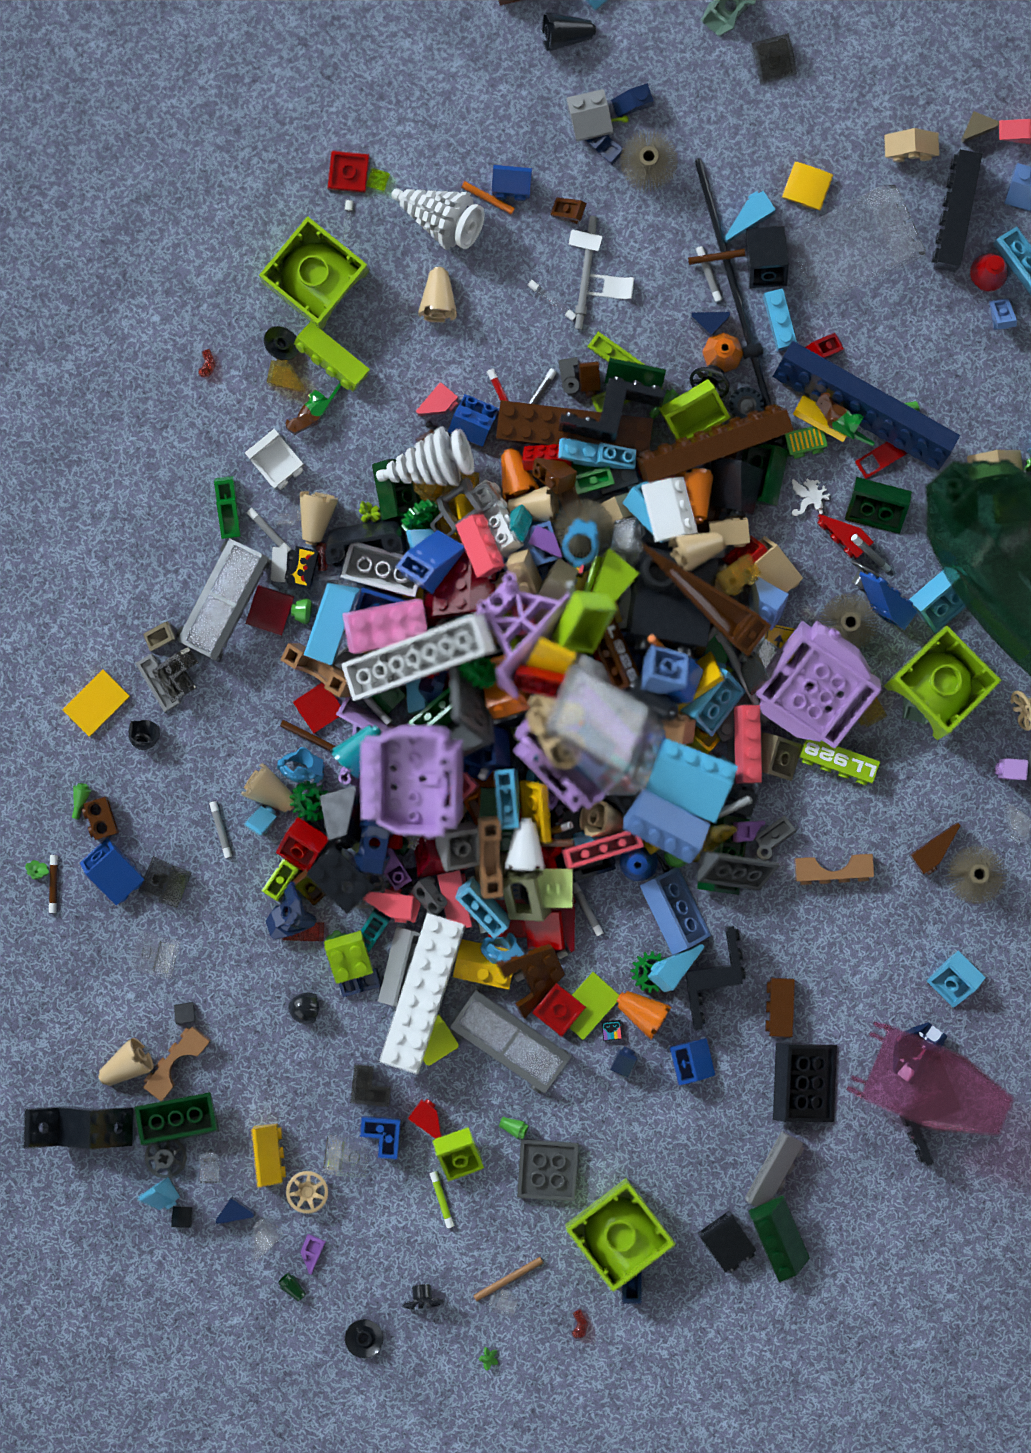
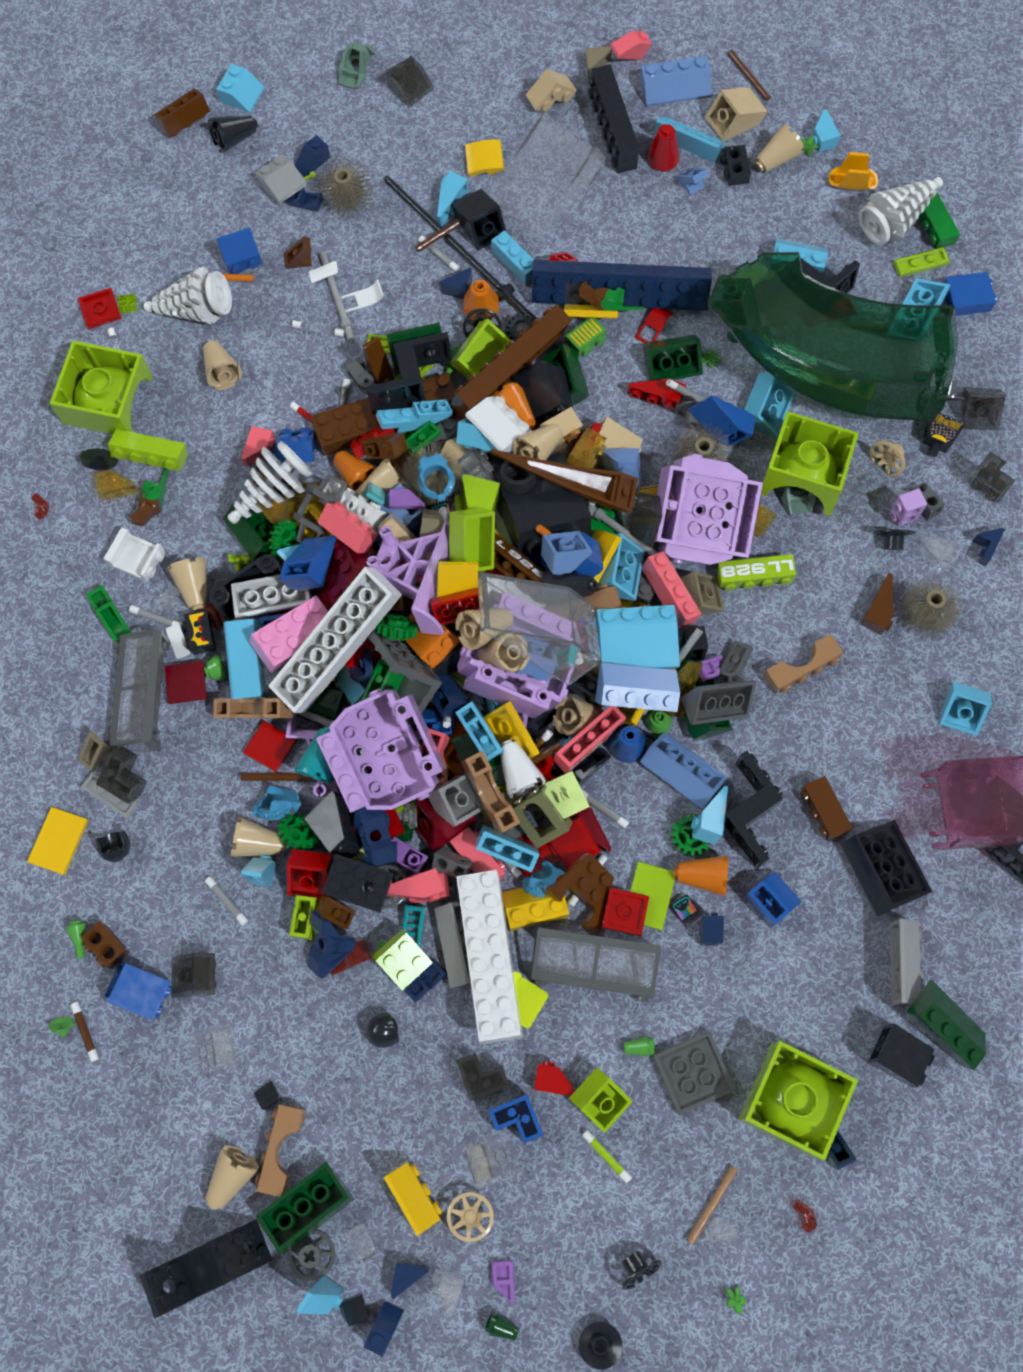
camera: 30 degrees left, 15 degrees down
(198, 1242) = (383, 1329): none -> dark blue slope
(812, 496) = (613, 379): white piece -> none
(916, 520) = (710, 358): none -> bright green plant
(983, 793) = (894, 538): none -> black wheel

